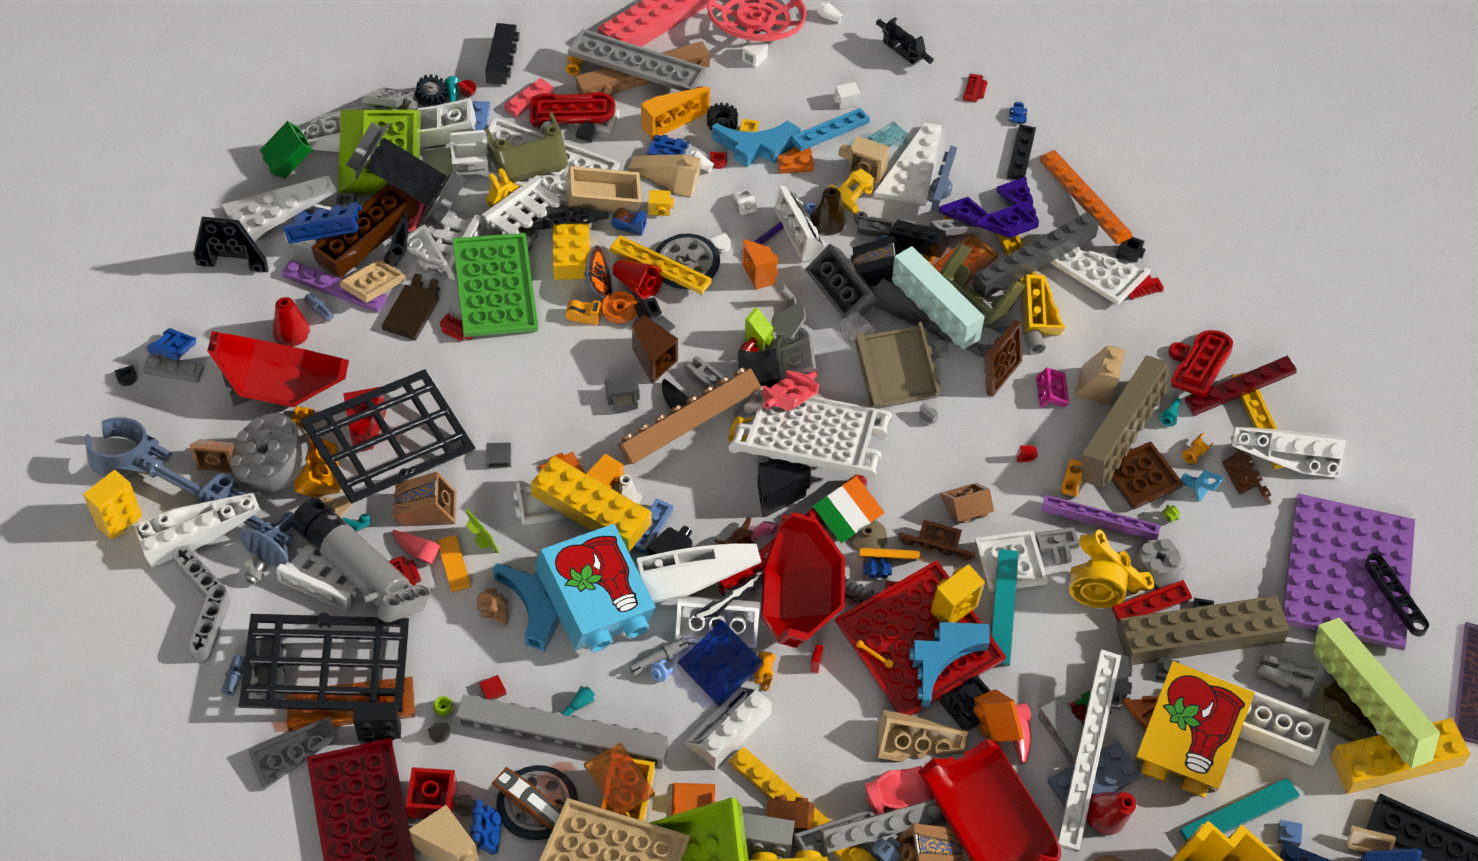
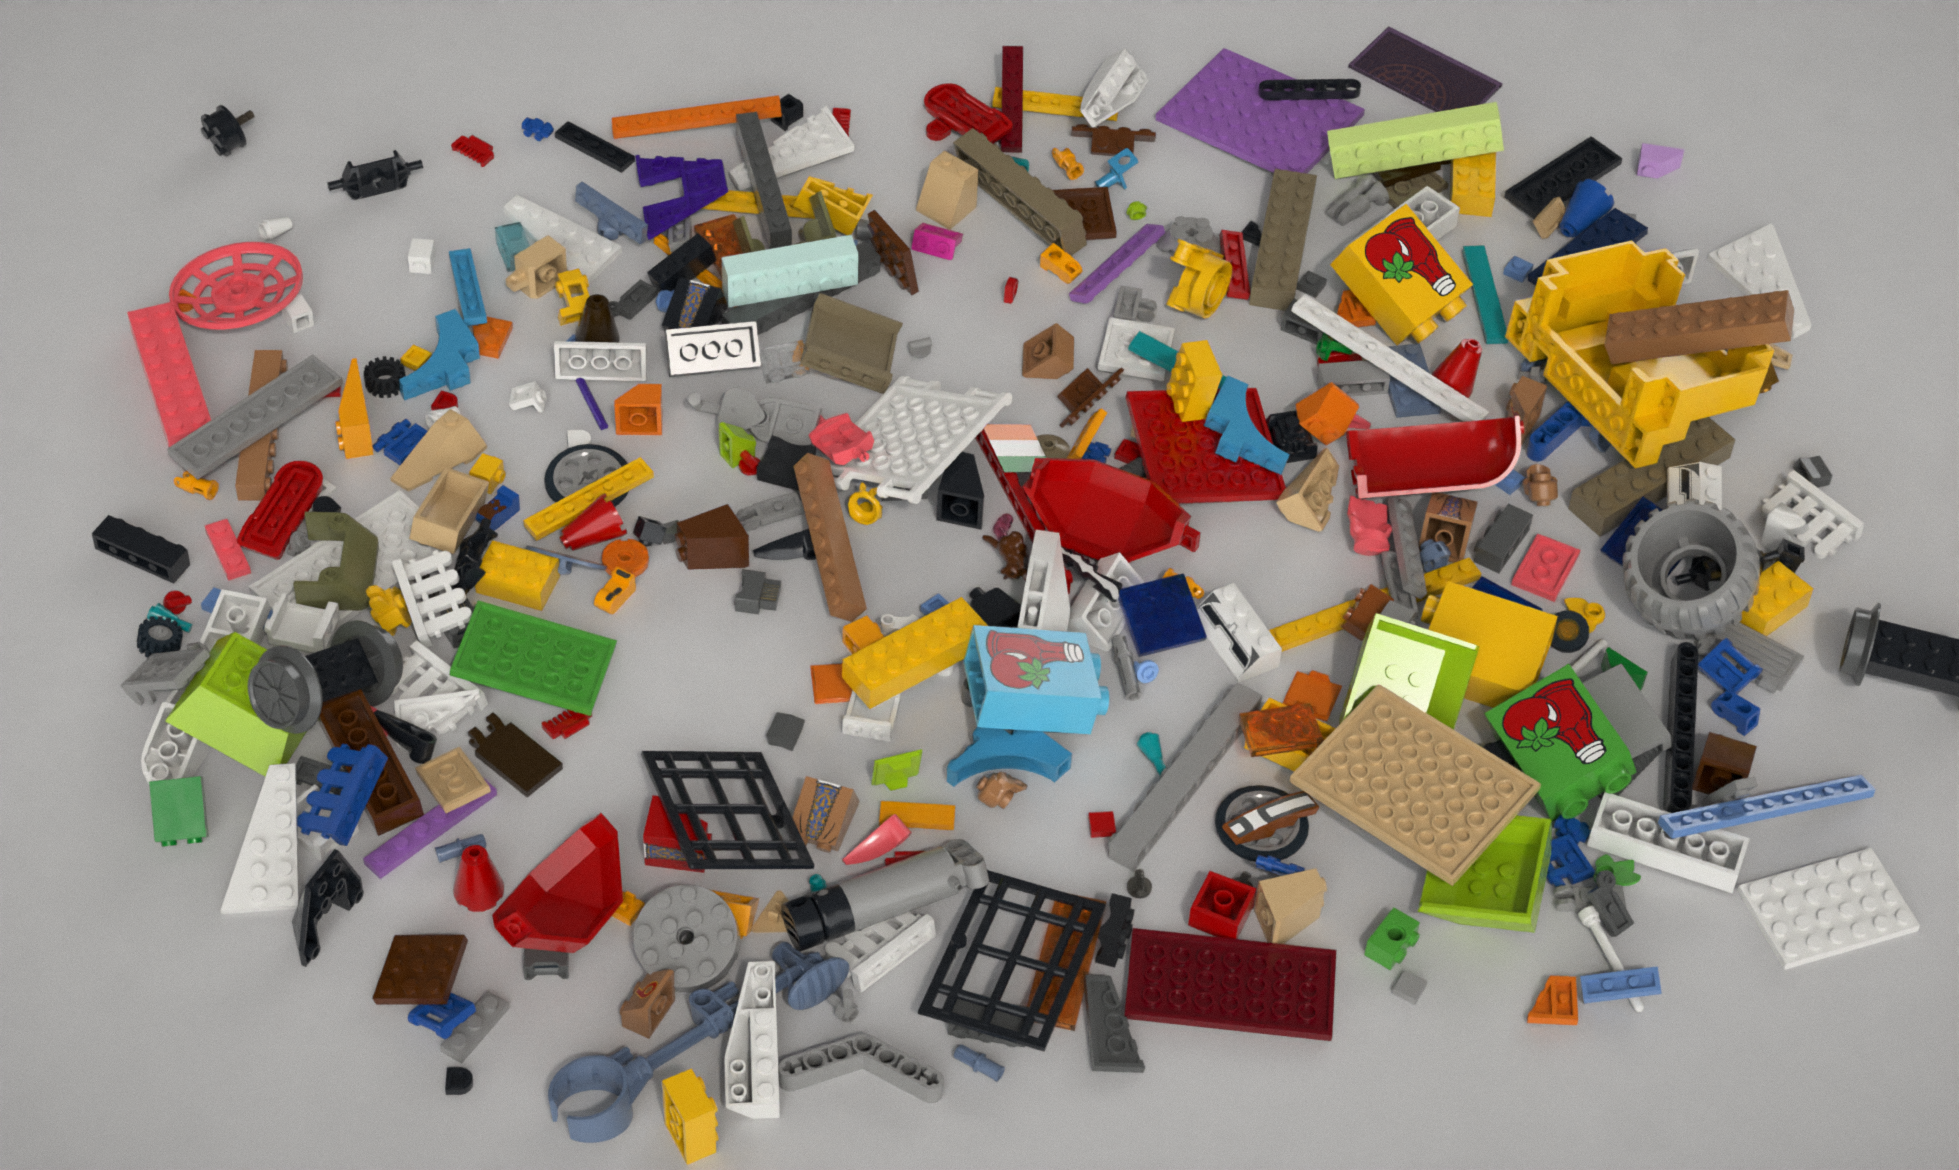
camera: 70 degrees left, 5 degrees down
(199, 319) = (420, 969): none -> reddish brown plate
(443, 701) = (1107, 868): lime plate -> none
(888, 663) = (1225, 478): light orange hinge -> none

